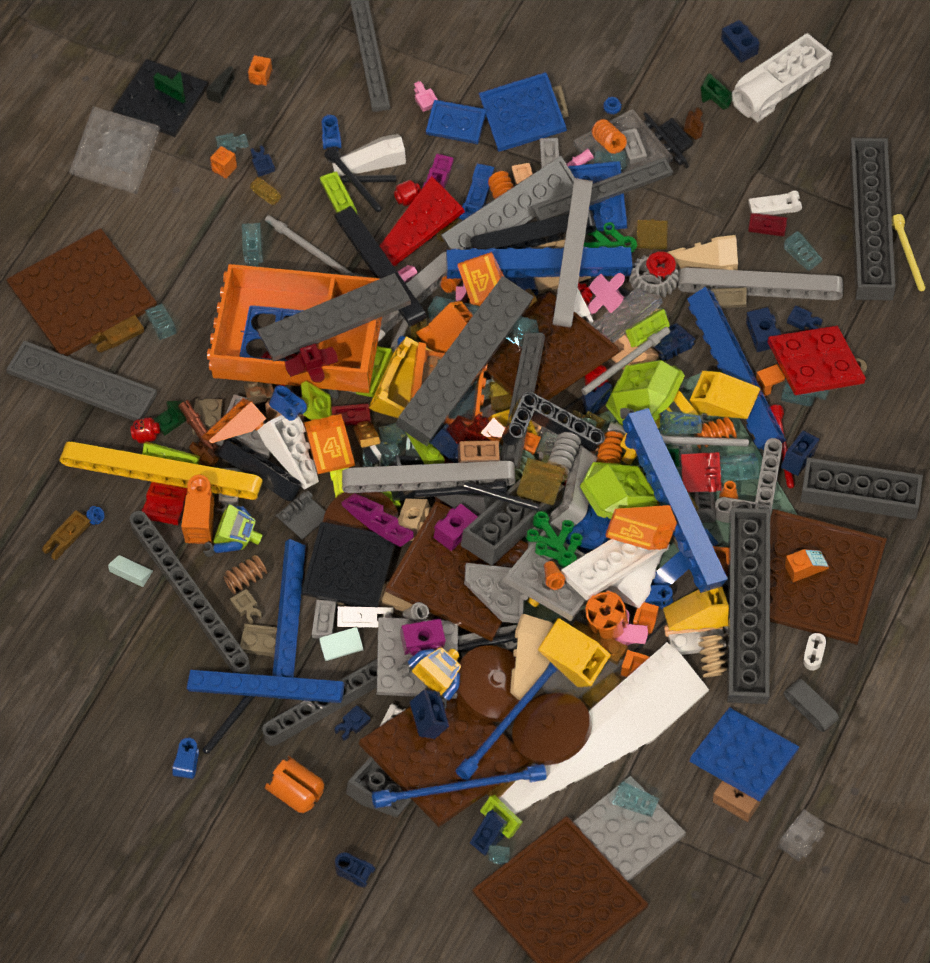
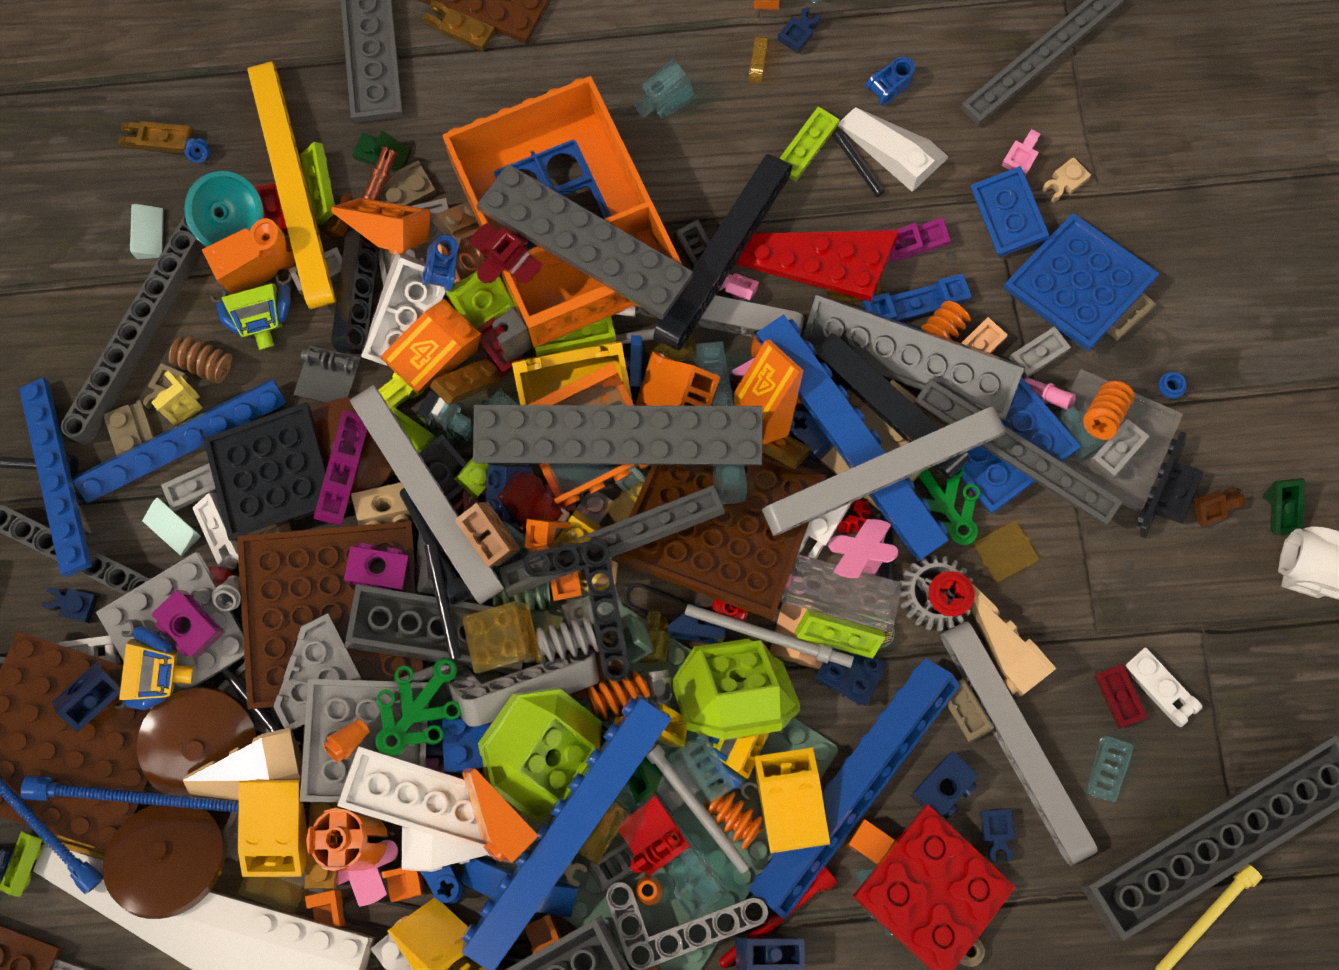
camera: 60 degrees right, 15 degrees up
(145, 430) = (340, 131): red head -> none
(159, 508) = (232, 195): none -> teal dish
(165, 331) = (501, 75): clear light blue slope -> none
(262, 592) = (178, 401): none -> light yellow bracket
(282, 228) = (719, 110): light grey bar -> none
(333, 156) = (858, 101): black piece -> none
(356, 393) = (516, 339): none -> dark grey hinge
(406, 192) = (862, 216): red head -> none
(455, 86) = (1067, 178): none -> tan plate

